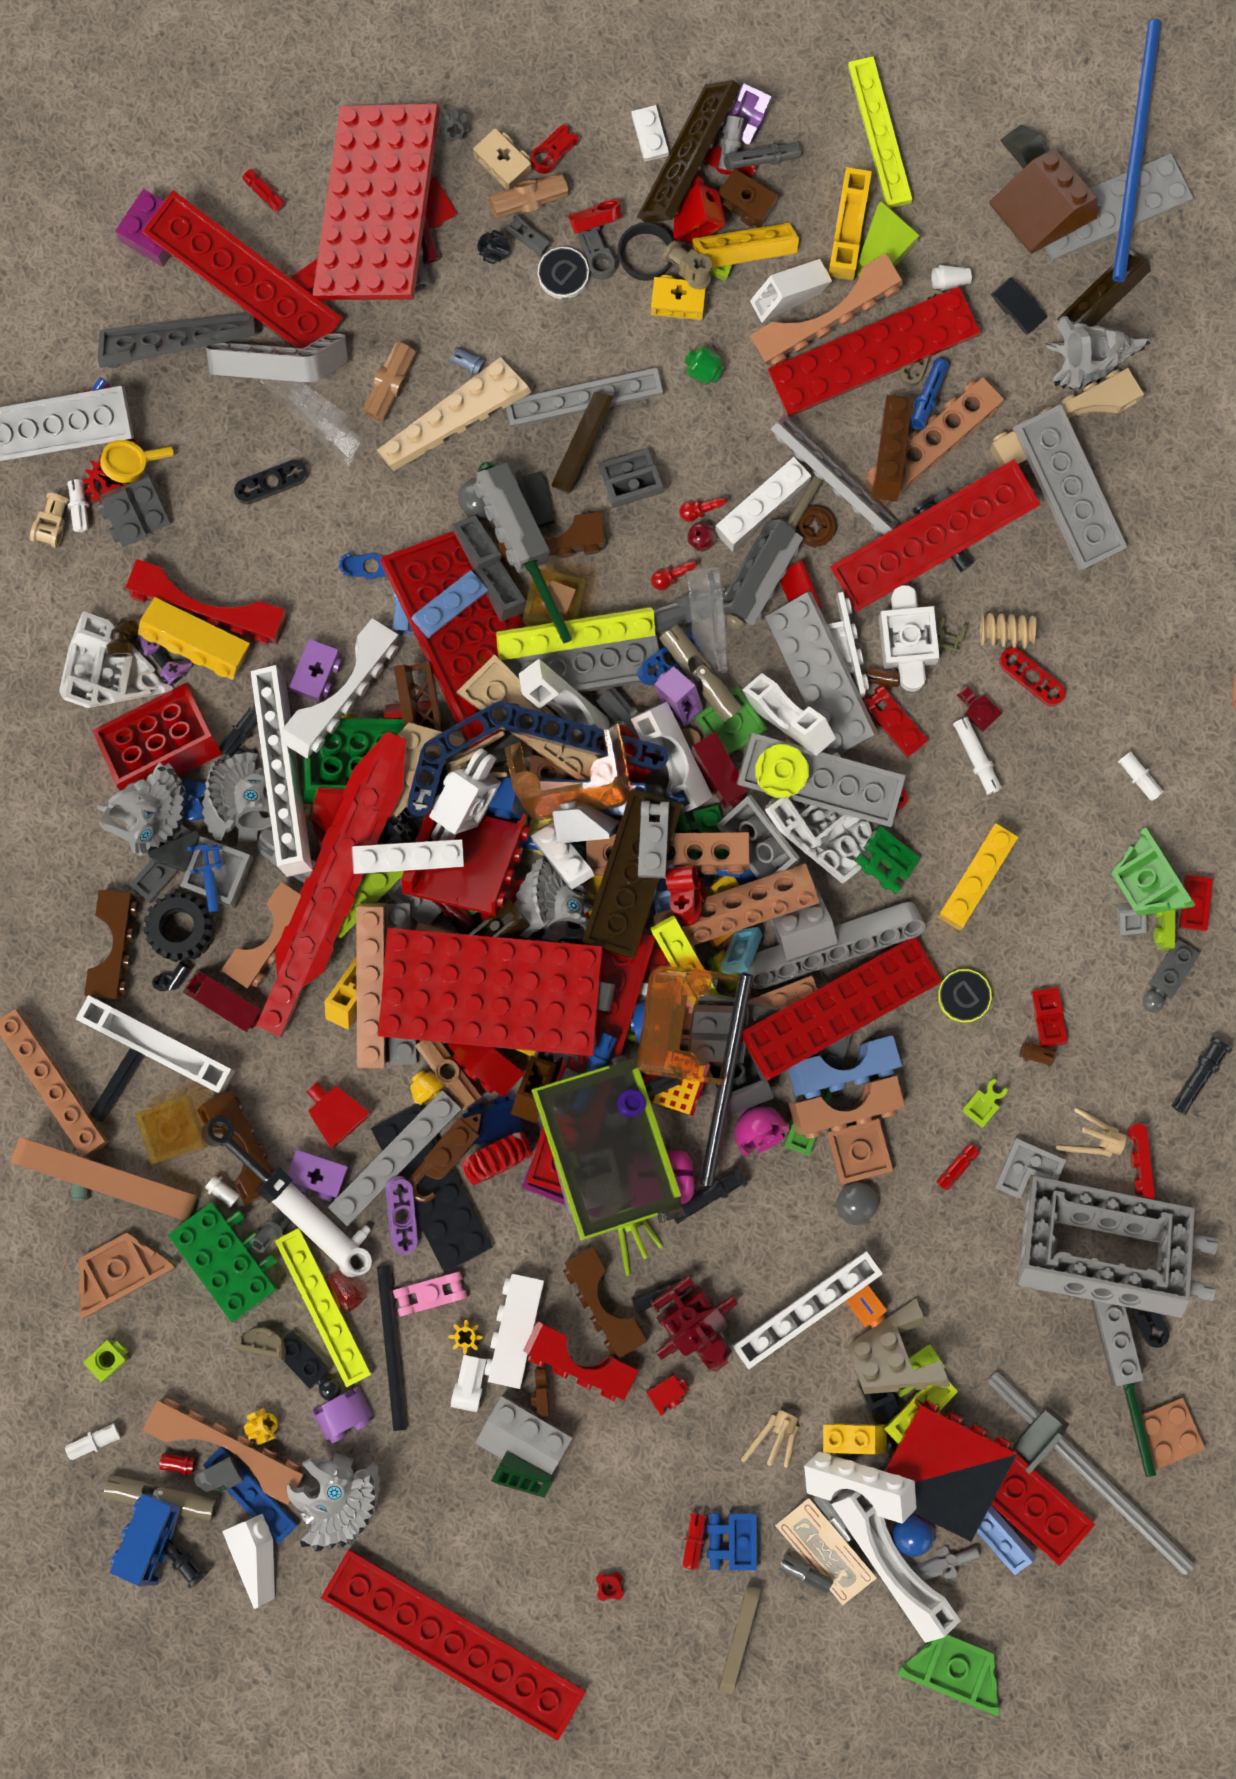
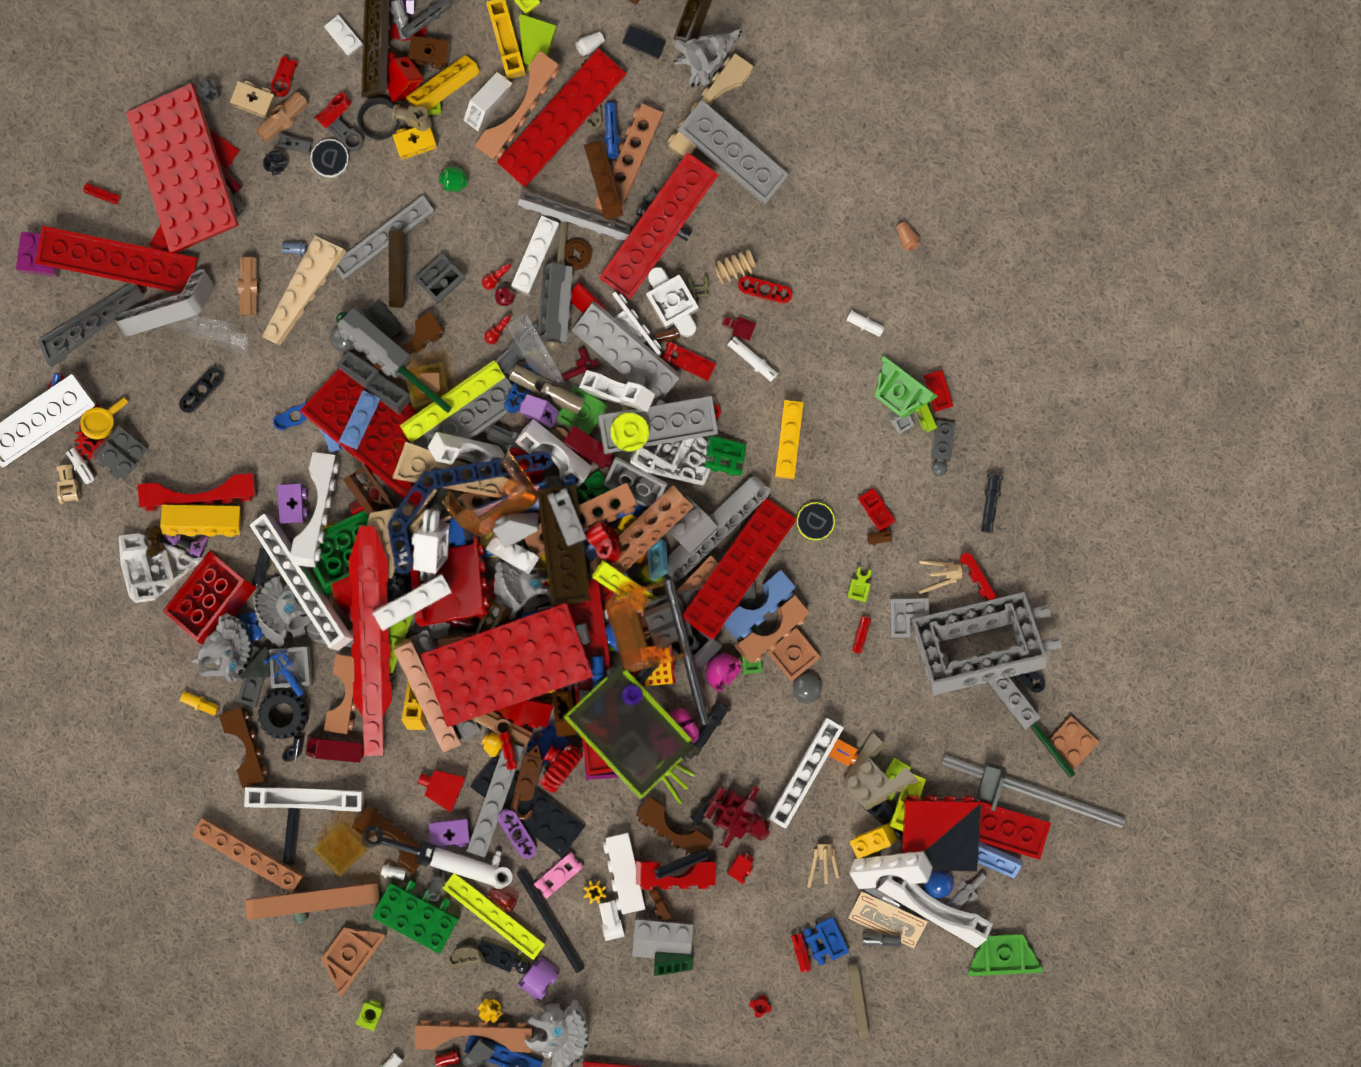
camera: 25 degrees left, 5 degrees up
(82, 865) = (199, 703): none -> yellow axle
(440, 1103) = (508, 750): none -> red axle
(494, 1133) = (552, 754): none -> red bush
(593, 1351) = (681, 864): none -> black axle
(757, 665) = (581, 365): none -> dark red hose

